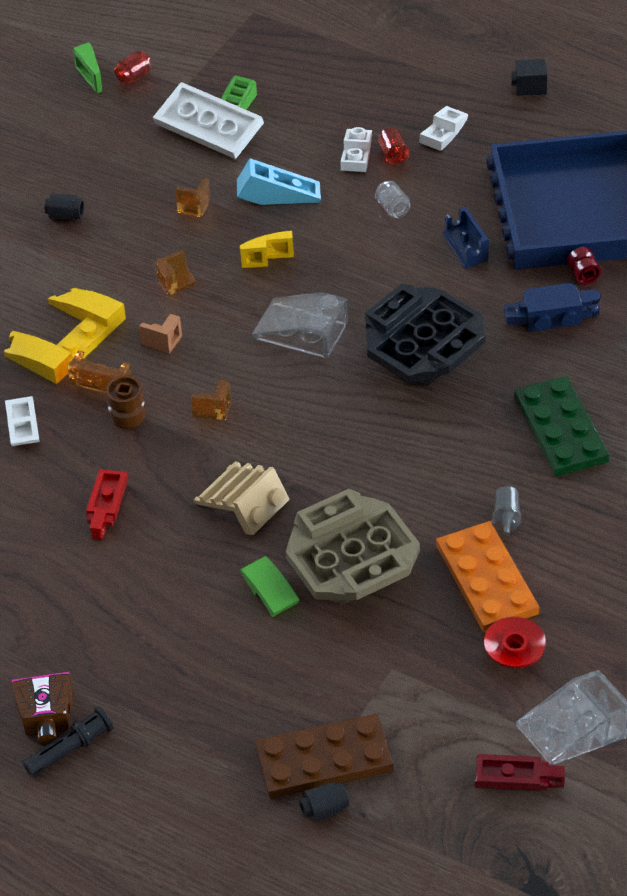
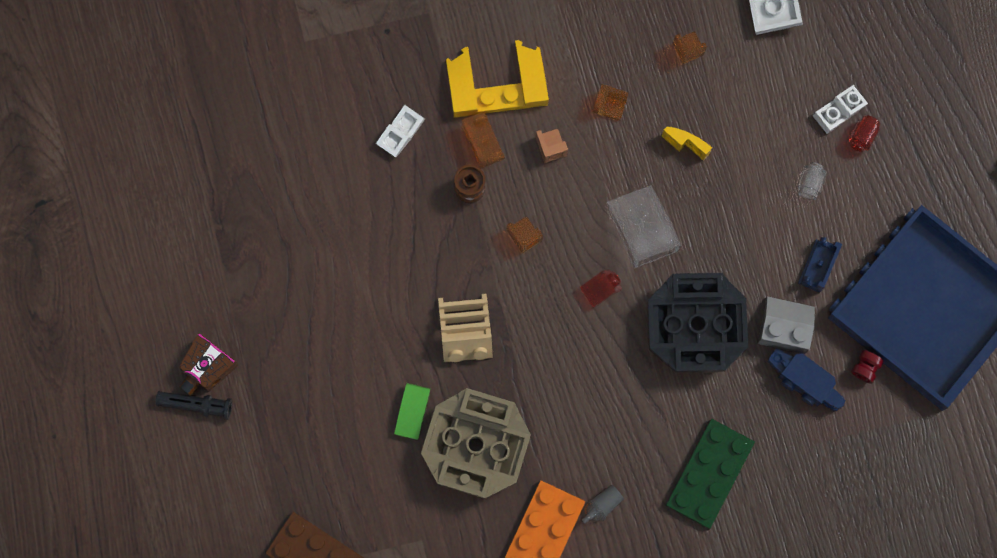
camera: 40 degrees right, 30 degrees up
(105, 501) = (385, 247): red hinge -> none
(273, 185) = (751, 92): medium azure slope -> none
(318, 382) = (601, 287): none -> clear red bracket
(444, 128) = (918, 149): white slope -> none
(493, 291) = (787, 325): none -> light grey slope

